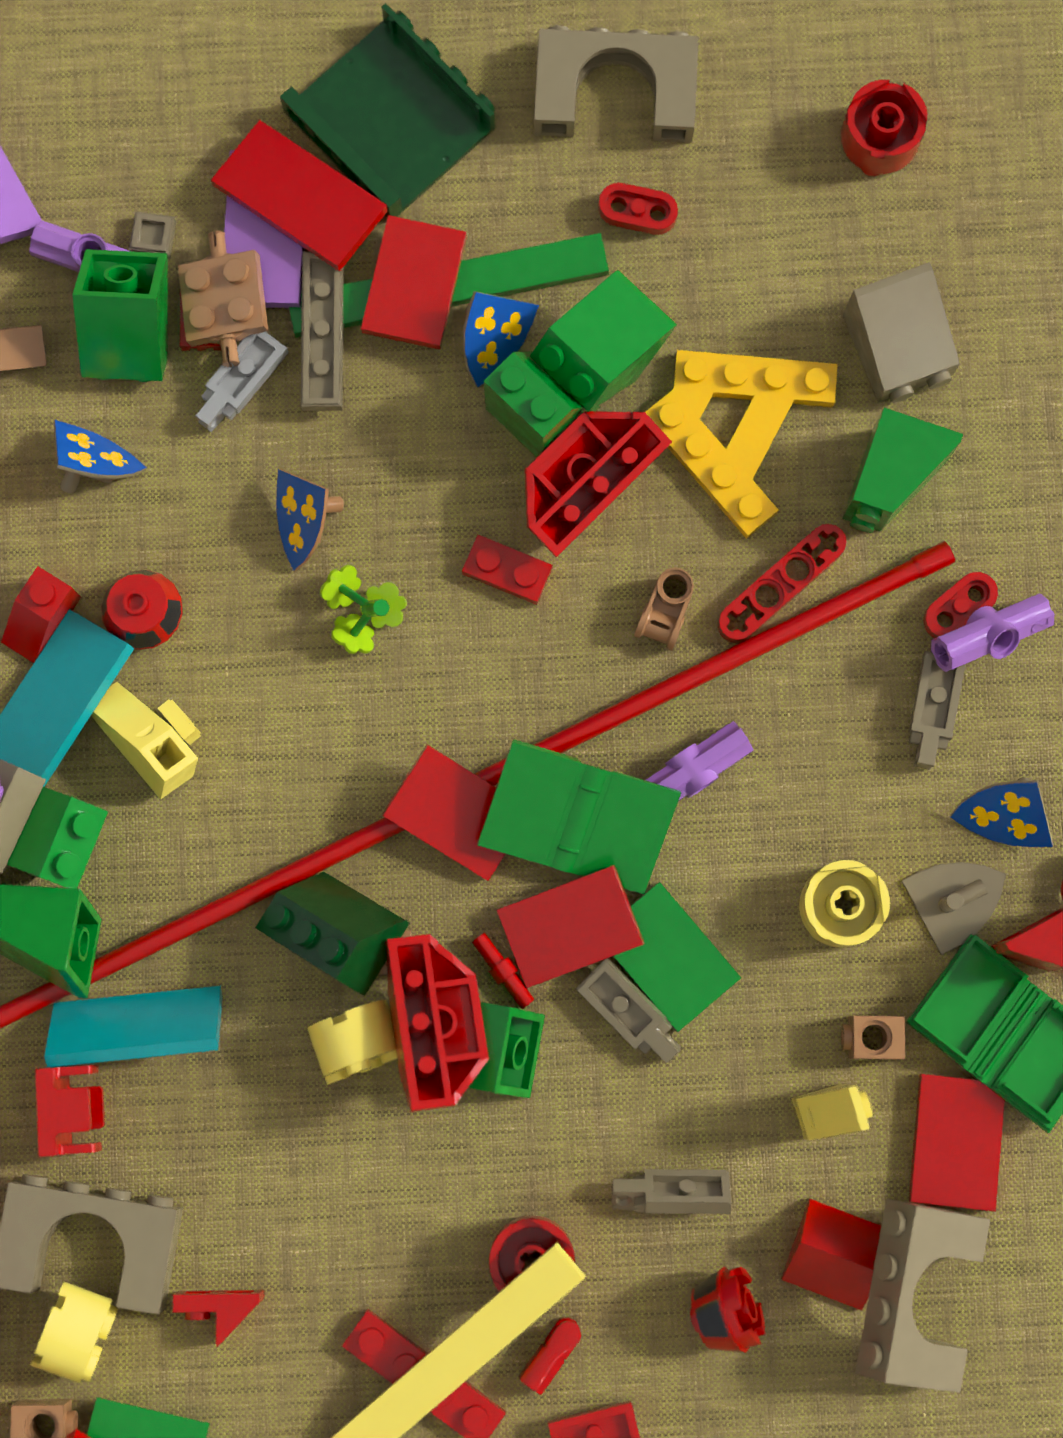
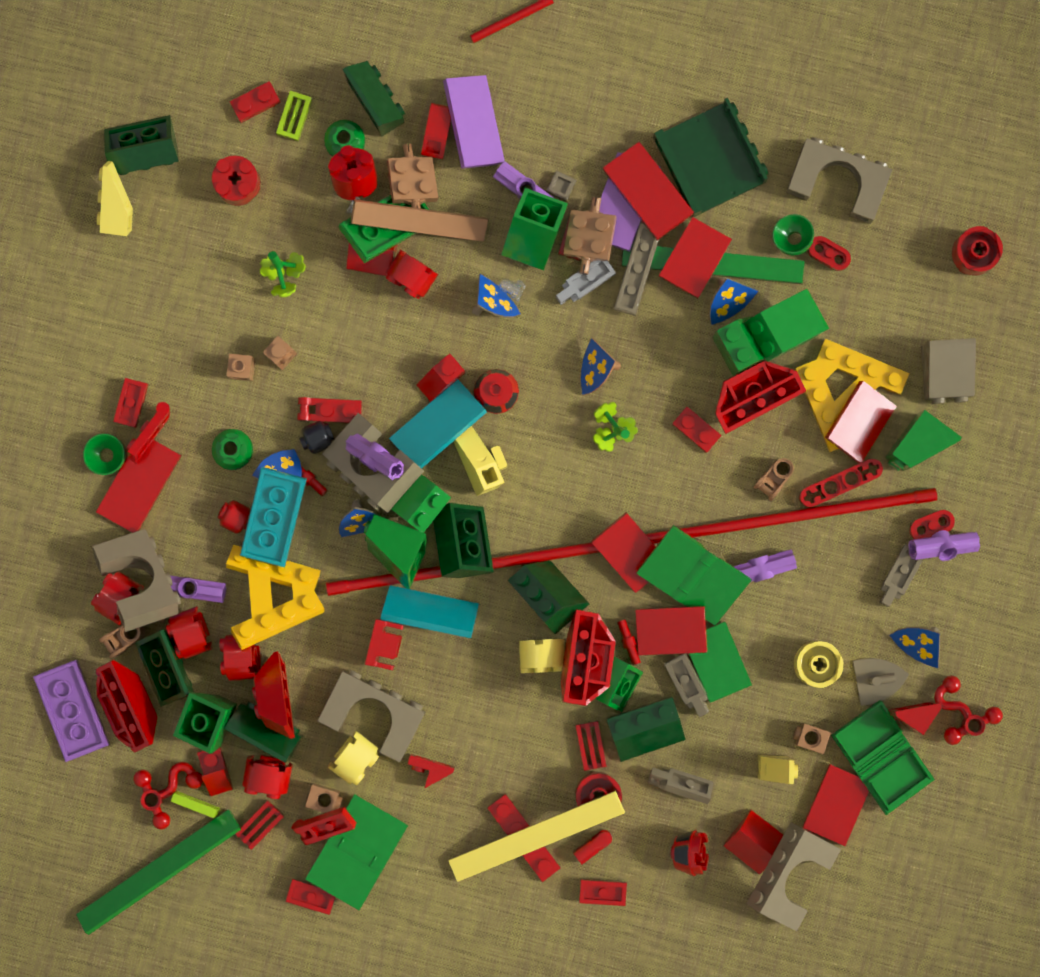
camera: 20 degrees right, 5 degrees up
(120, 428) = (512, 288): none -> clear piece
(156, 884) = (462, 541): none -> dark green slope
(509, 1207) = (594, 765): none -> red tile
(558, 182) = (789, 225): none -> green piece
(580, 1114) = (646, 728): none -> dark green slope
(781, 468) = (860, 421): none -> tile

